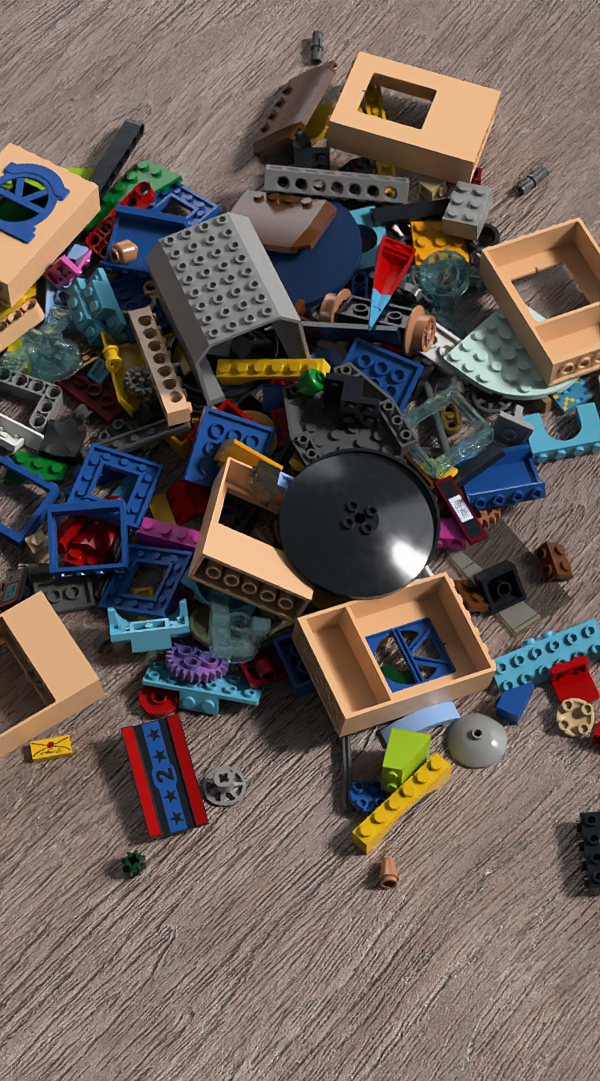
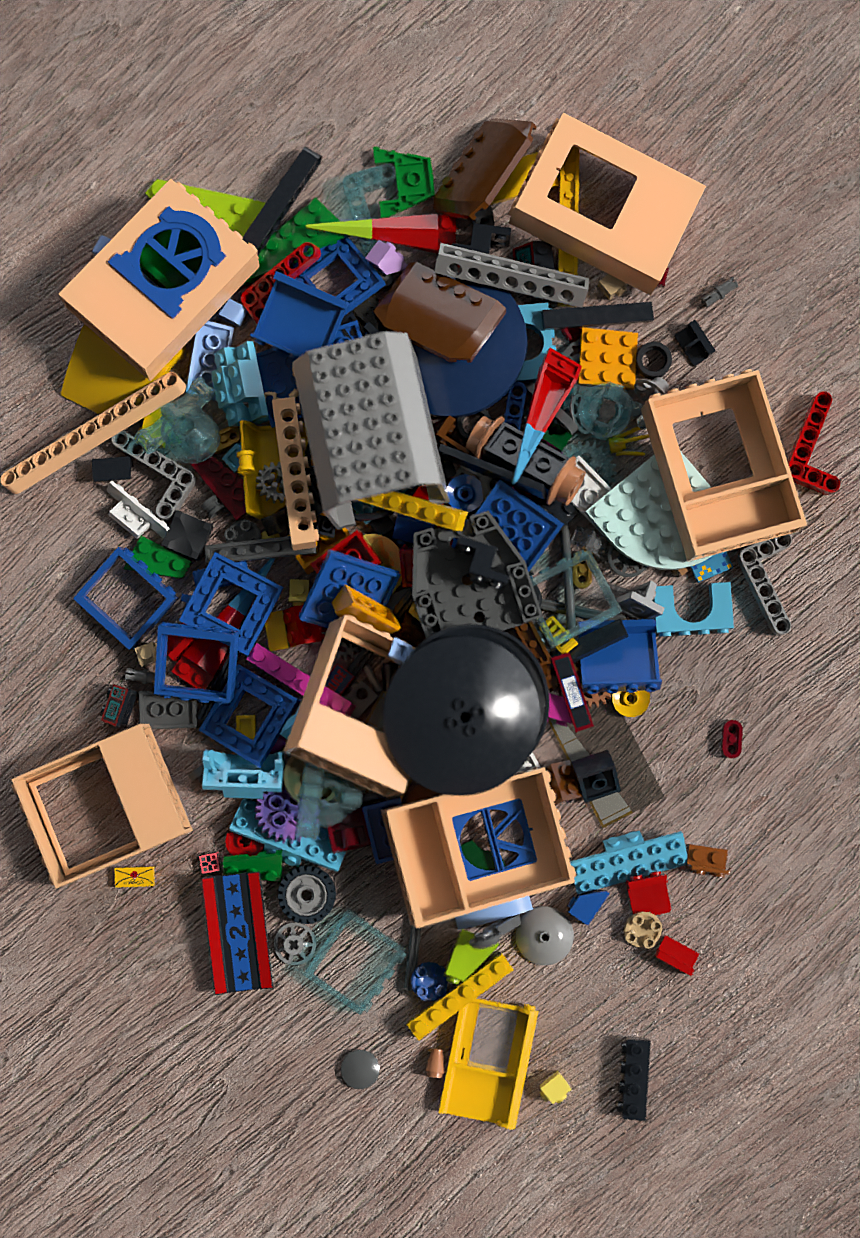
camera: 10 degrees right, 25 degrees up
(64, 270) = (220, 338): dark pink bracket -> none
(124, 252) = (276, 328): nougat head -> none
(124, 721) = (209, 863): none -> tile
(138, 866) = (191, 1017): dark green gear -> none
(176, 472) = (298, 592): none -> light yellow bracket
(180, 147) = (361, 188): none -> clear light blue beam
(186, 706) = (268, 864): none -> green wing
(217, 189) = (385, 258): none -> lavender slope
(231, 133) = (413, 180): none -> green wing
(231, 749) = (295, 905): none -> wheel
(239, 170) = (415, 232): none -> red plate
(264, 481) = (377, 649): clear smoke slope -> none
(299, 831) = (386, 974): none -> clear light blue window
(311, 382) = (443, 538): green head -> none
(311, 891) = (360, 1069): none -> dark grey dish
(316, 47) = (520, 82): dark grey pin -> none
(425, 724) = (492, 934): none -> dark grey beam
(447, 866) = (494, 1062): none -> yellow piece
(463, 311) = (617, 443): none -> yellow plant
(467, 210) = (643, 328): light grey brick -> none
(515, 875) = (554, 1088): none -> light yellow brick
(518, 220) = (695, 343): none -> black panel
(523, 510) = (631, 709): none -> yellow dish
(553, 562) = (654, 755): reddish brown bracket -> none

